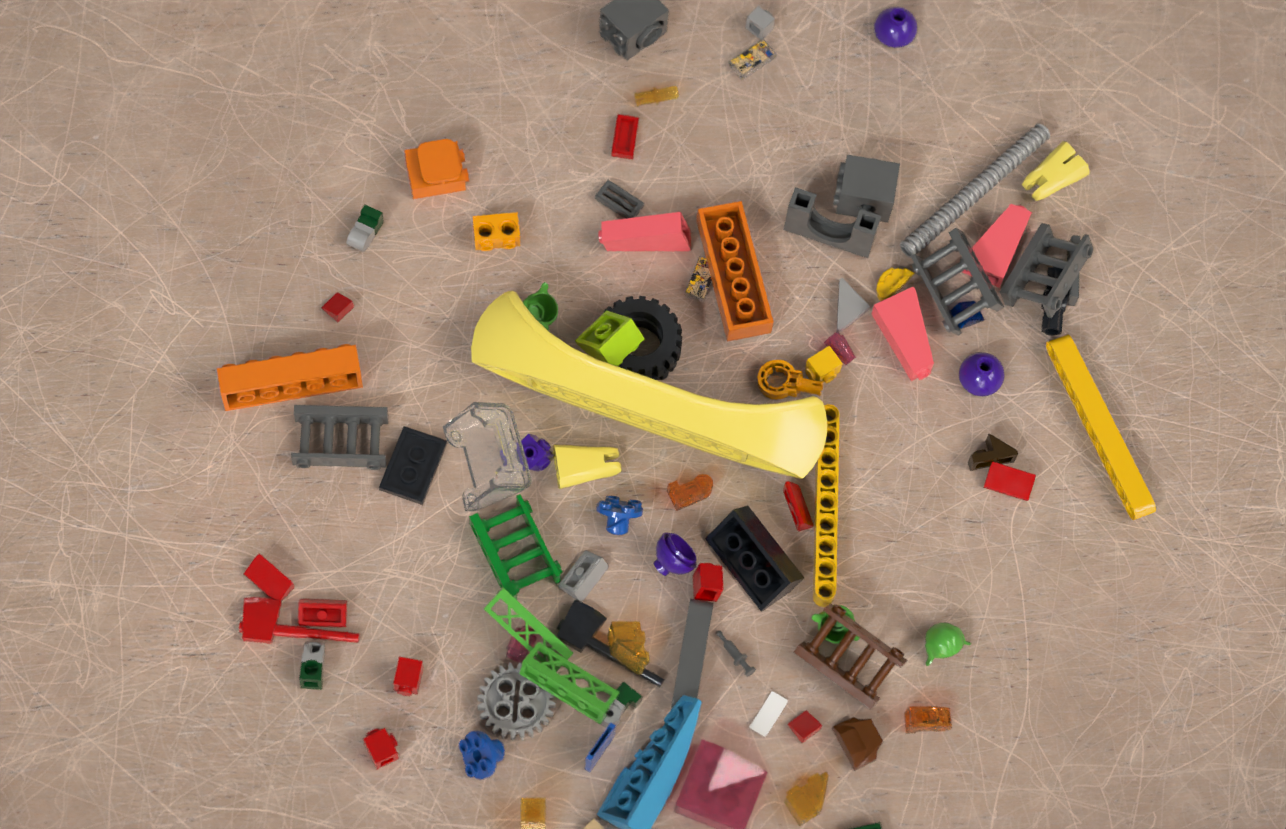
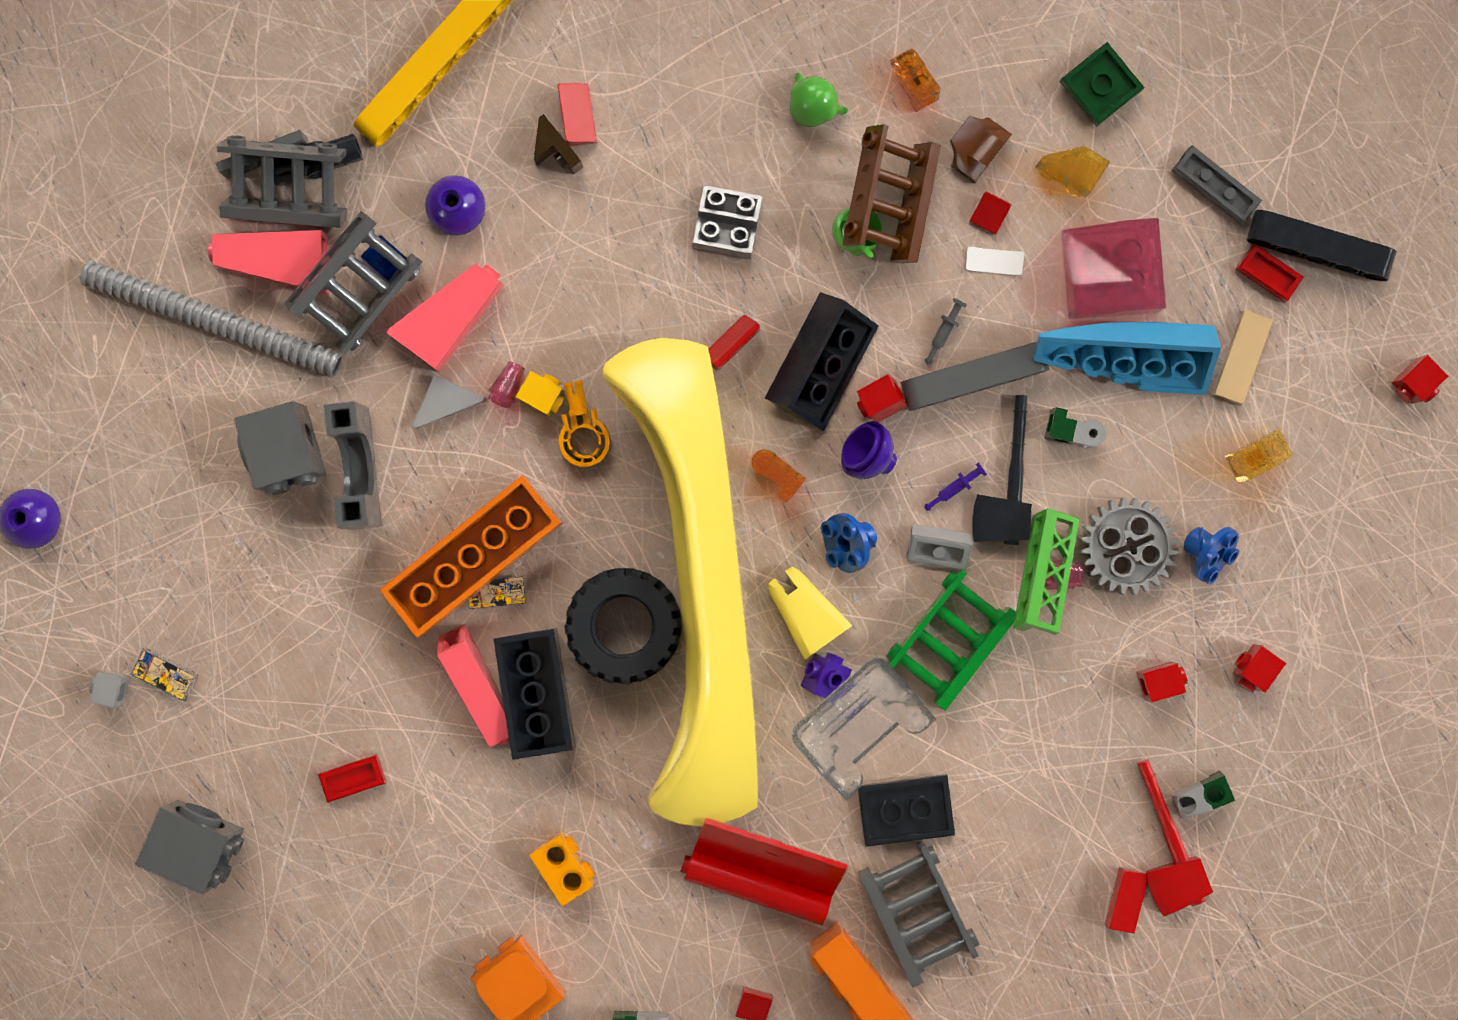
camera: 115 degrees left, 20 degrees up
(322, 612) = (1132, 819): red slope -> none
(423, 348) = (763, 871): none -> red door
(542, 306) = (641, 762): bright green hair -> none
(579, 698) = (1099, 494): bright green fence -> none
(600, 747) = (1140, 424): blue piece -> none
(610, 338) = (653, 655): lime slope -> none
(613, 206) = (458, 717): dark grey tile -> none
(620, 612) = (956, 486): none -> dark purple piece
(621, 265) = (534, 693): none -> black slope
(627, 645) = (1004, 452): clear yellow slope -> none
(656, 95) = (277, 767): clear yellow axle -> none
(826, 515) = (725, 297): yellow beam -> none
(885, 544) = (727, 222): none -> flat silver slope
(892, 281) = (386, 365): yellow tile -> none
(1056, 172) = (137, 231): light yellow piece -> none

